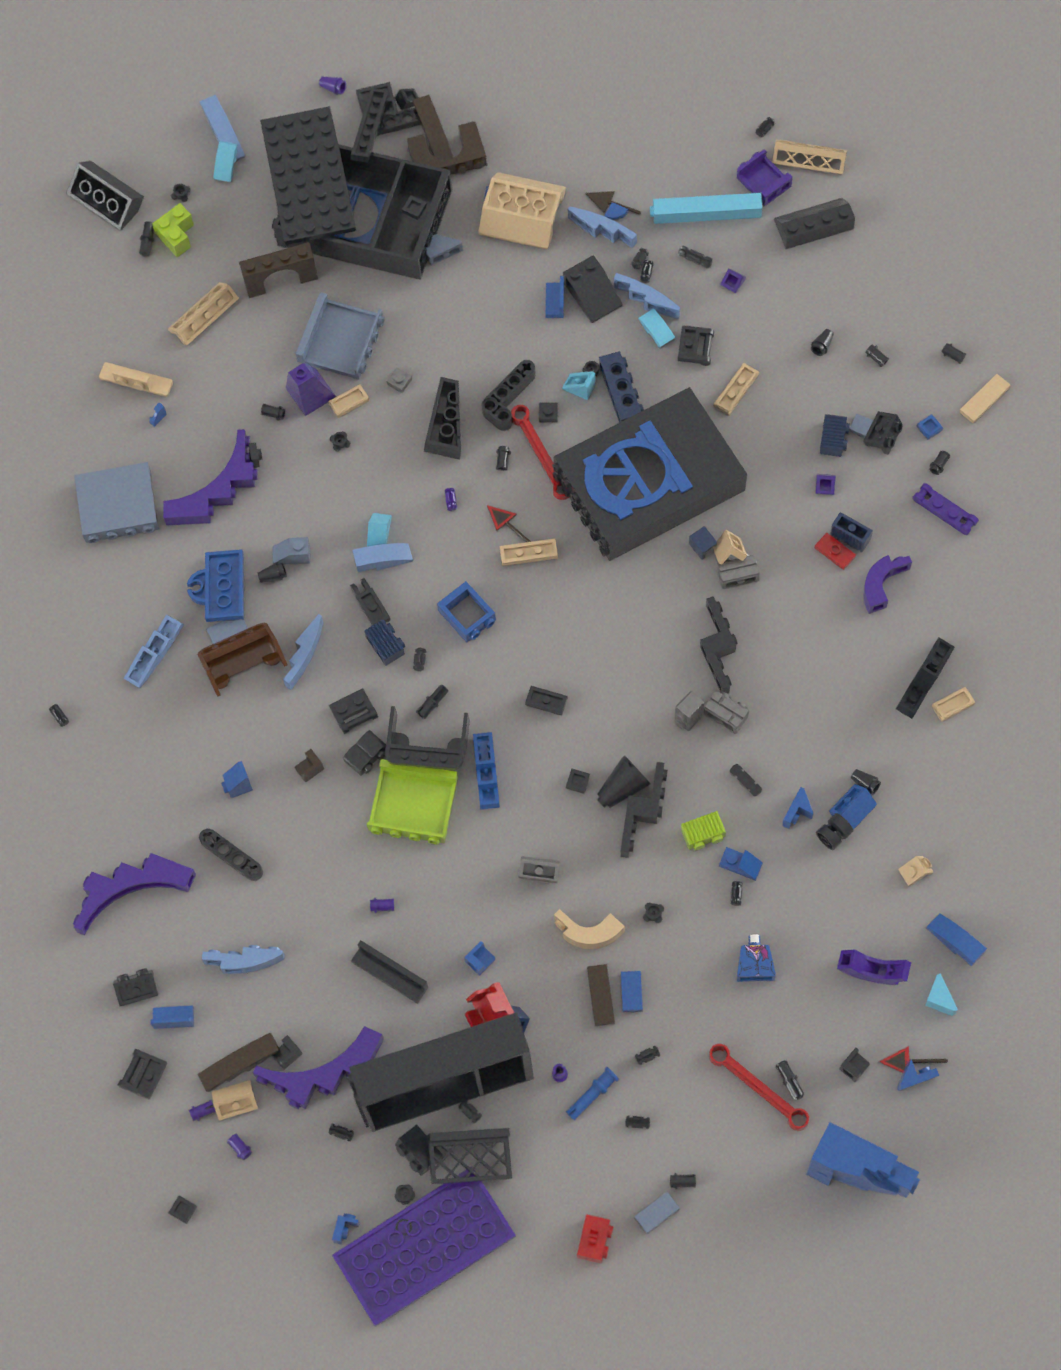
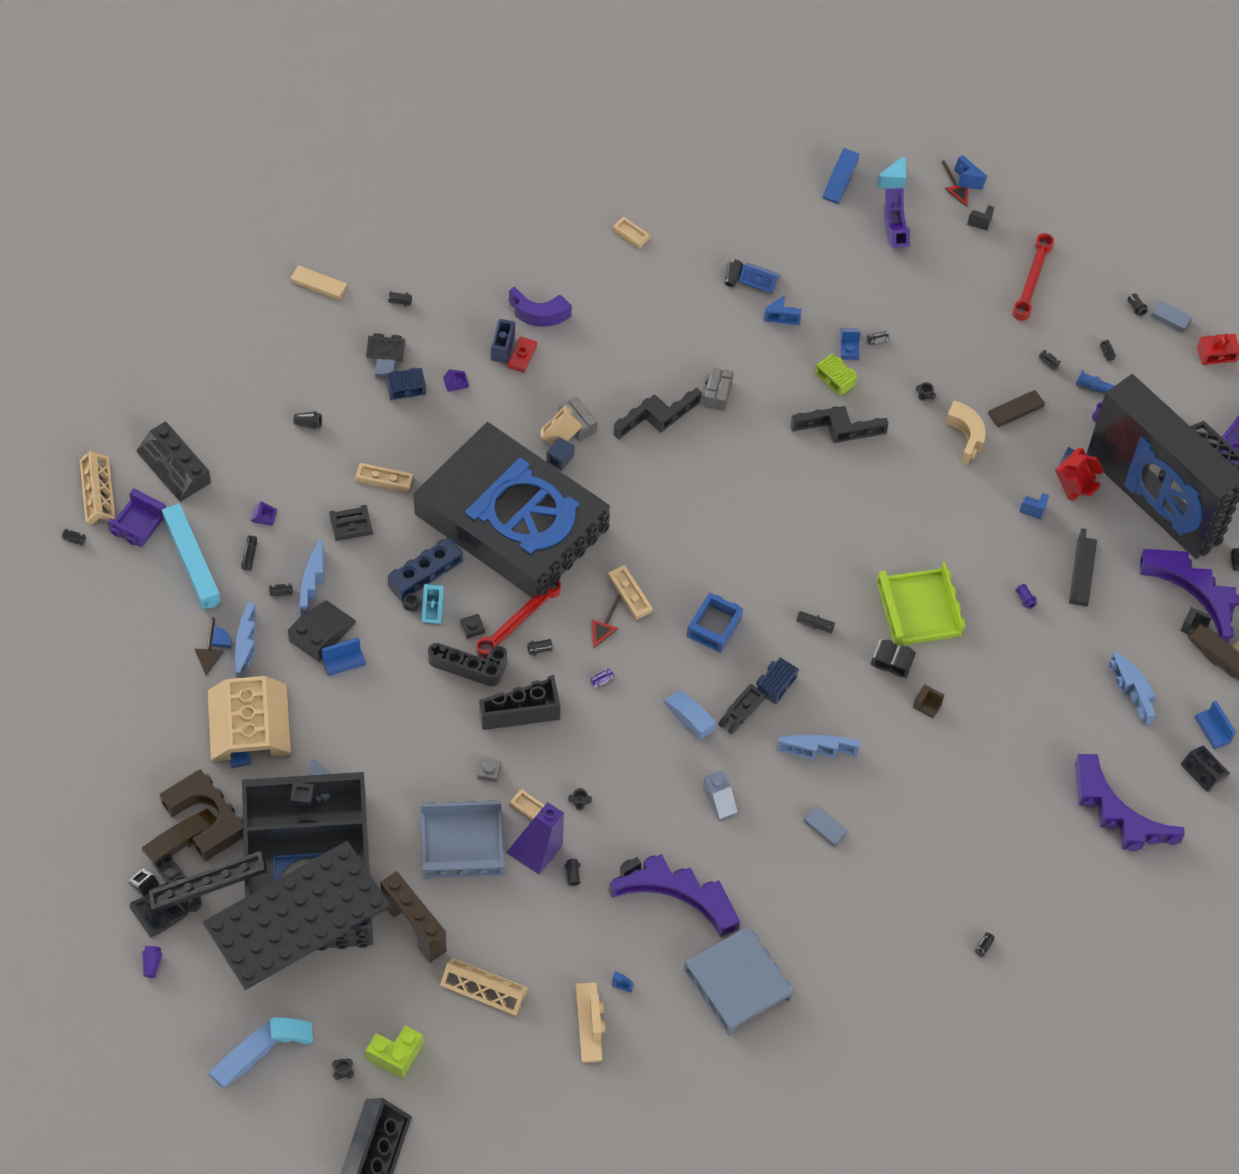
camera: 120 degrees left, 10 degrees down
(146, 239) = (415, 1080): black axle -> none
(153, 651) = (879, 883): medium blue slope -> none
(220, 585) = (785, 844): blue plate -> none
(231, 854) = (1045, 738): black beam -> none
(236, 780) = (975, 751): blue slope -> none
(240, 653) = (842, 803): reddish brown windscreen -> none
(272, 573) = (749, 805): black cone -> none
(351, 706) = (853, 691): black plate -> none
(378, 529) = (661, 728): medium azure slope -> none
(401, 753) = (876, 597): black windscreen -> none
(419, 659) = (778, 648): black piece -> none
(486, 770) = (861, 557): blue slope -> none
(539, 869) = (935, 481): flat silver brick -> none
(546, 700) = (771, 530): black plate -> none
(577, 781) = (836, 482): black plate -> none
(621, 783) = (825, 443): black cone -> none
(631, 991) = (1001, 387): blue tile -> none
(639, 258) = (268, 599): black piece -> none
(656, 327) = (343, 560): medium azure slope -> none
(689, 711) = (735, 410): flat silver brick -> none
(746, 780) = (773, 359): black axle -> none
(755, 961) = (932, 305): blue torso -> none
(790, 1080) = (1016, 256): black axle -> none
(837, 829) = (791, 280): black wheel -> none
(860, 1164) = (1071, 181): blue panel -> none
(876, 355) = (304, 377): black pin -> none
(916, 869) = (795, 218): tan bracket -> none
(925, 678) = (622, 249): black bracket -> none
(929, 427) = (364, 317): blue tile -> none
(945, 509) = (445, 283): dark purple plate -> none
(953, 353) = (279, 319): black pin -> none

